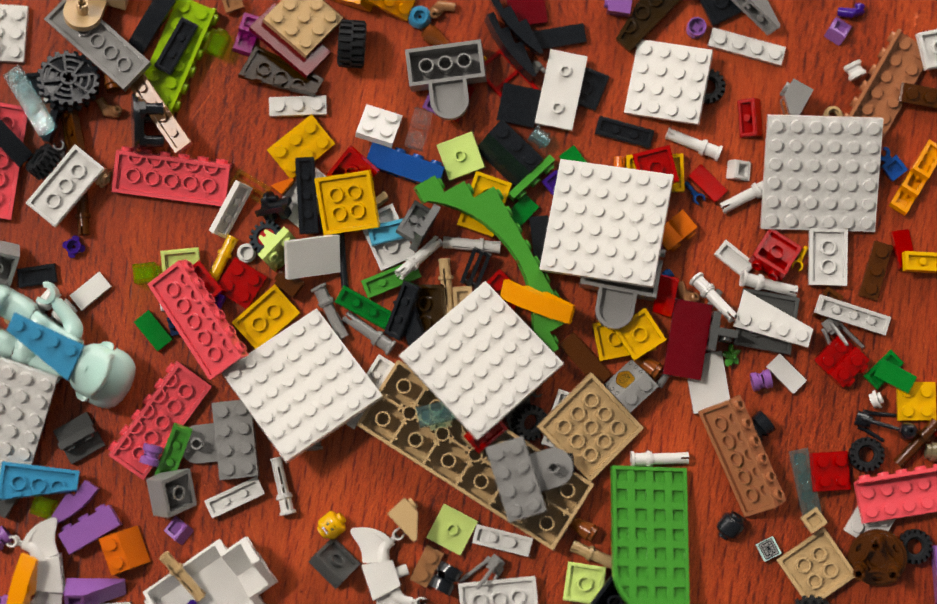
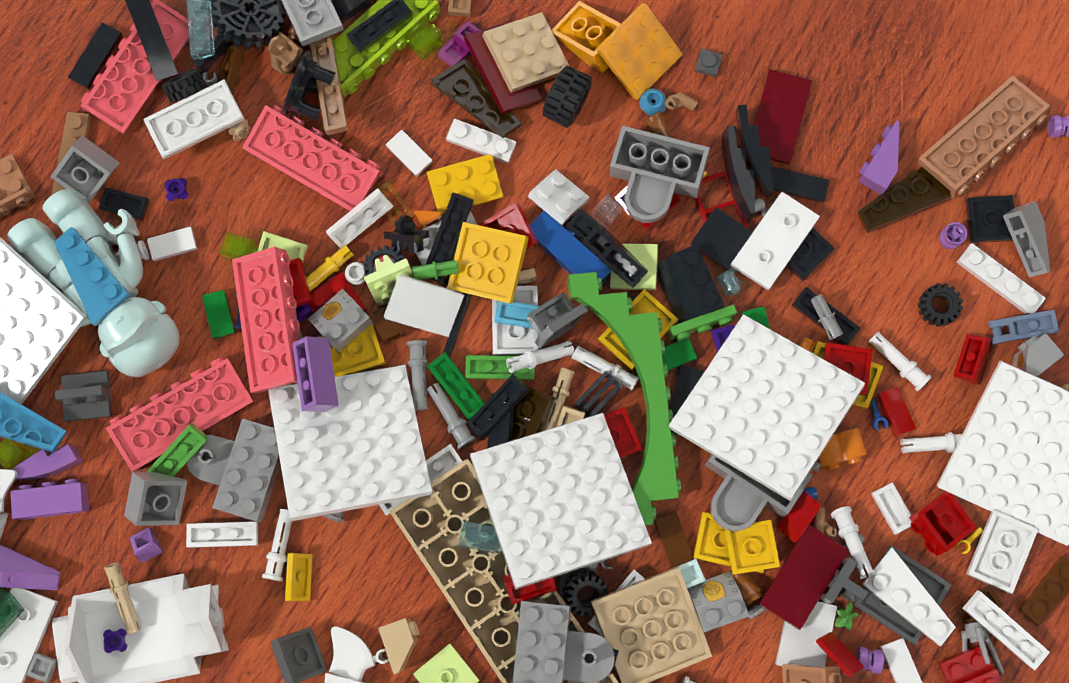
camera: 30 degrees right, 5 degrees down
(83, 215) = (201, 159): reddish brown pin -> none
(113, 99) = (285, 50): none -> medium nougat hips
(124, 550) = (75, 540): orange slope -> none
(151, 454) = (151, 447): medium lavender wheel -> none
(245, 139) = (409, 153): none -> white tile
(252, 295) = (340, 320): none -> light grey slope
(254, 345) = (315, 374): none -> medium lavender brick
(307, 503) = (298, 577): none -> yellow plate
(309, 225) = (435, 270): none -> bright green axle
(331, 525) = (314, 613): yellow head -> none
(434, 150) = (607, 247): none -> black slope
(537, 302) = (651, 461): light orange slope -> none
(603, 373) = (692, 573): none -> light aqua tile
(625, 134) = (826, 317): none -> light grey axle
(668, 82) = (899, 281): white plate -> none
(737, 385) = (840, 654): none -> red slope
(738, 170) = (937, 411): white slope -> none
(760, 282) = (913, 547): white pin -> none
(778, 77) = (1024, 326): none -> sand blue plate

